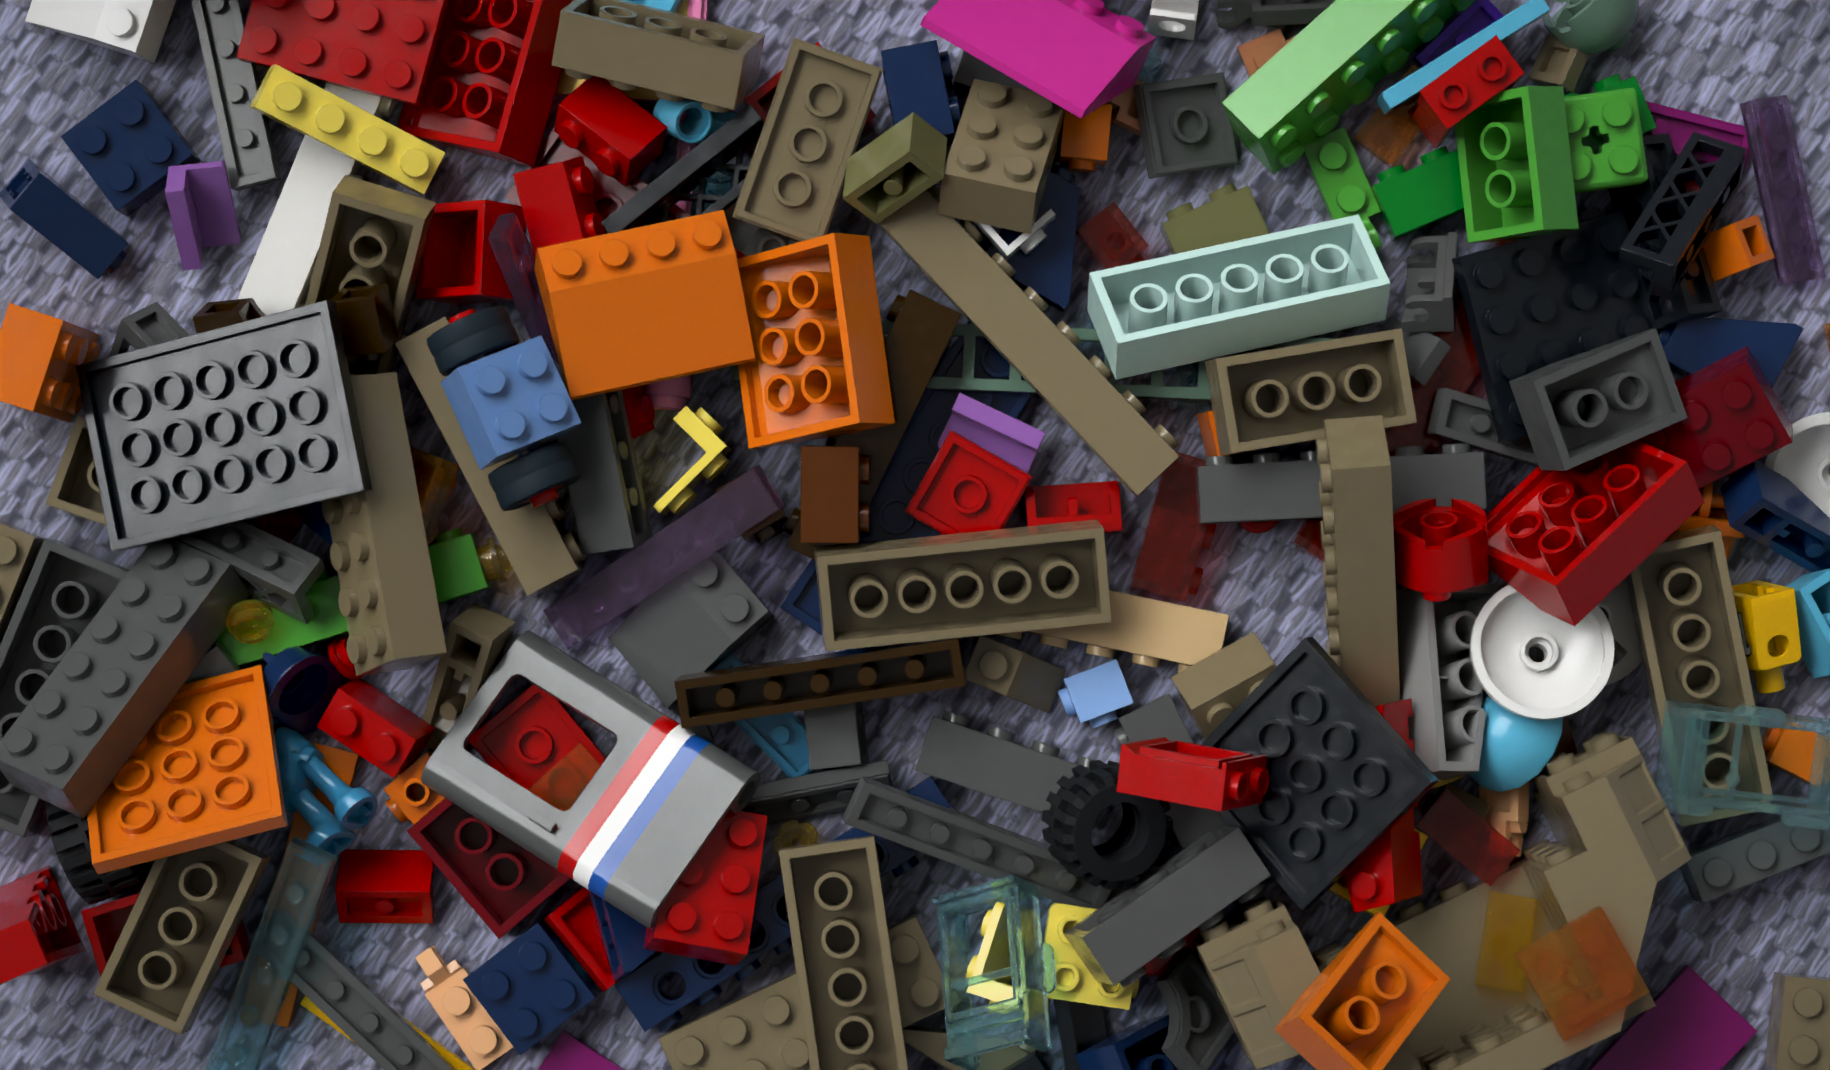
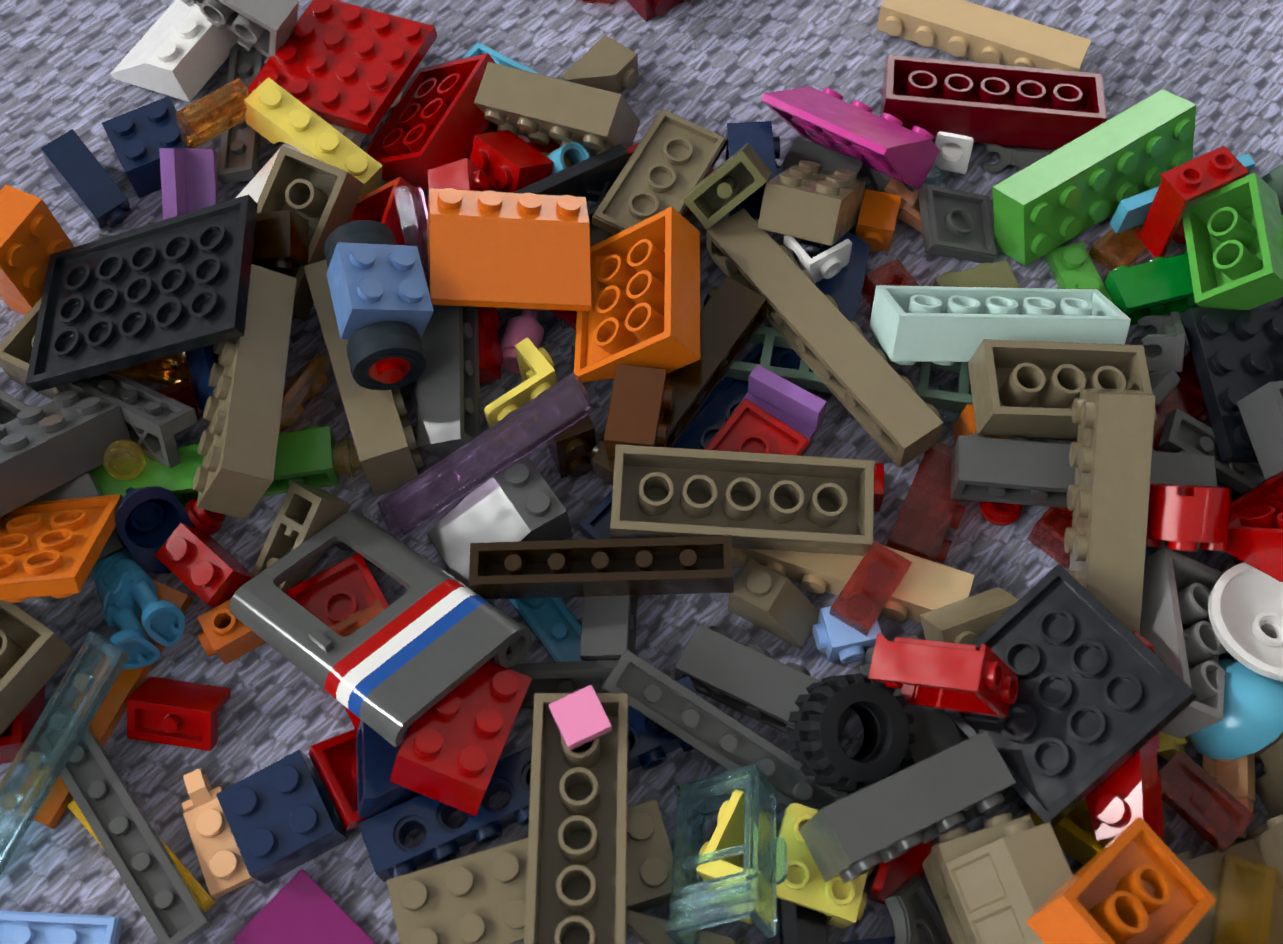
camera: 10 degrees right, 25 degrees down
(206, 141) = (213, 114): none -> clear orange plate
(485, 866) = (273, 697): dark red brick -> none
(830, 873) = (580, 717): none -> bright pink tile
(1115, 655) = (870, 588): none -> clear red plate

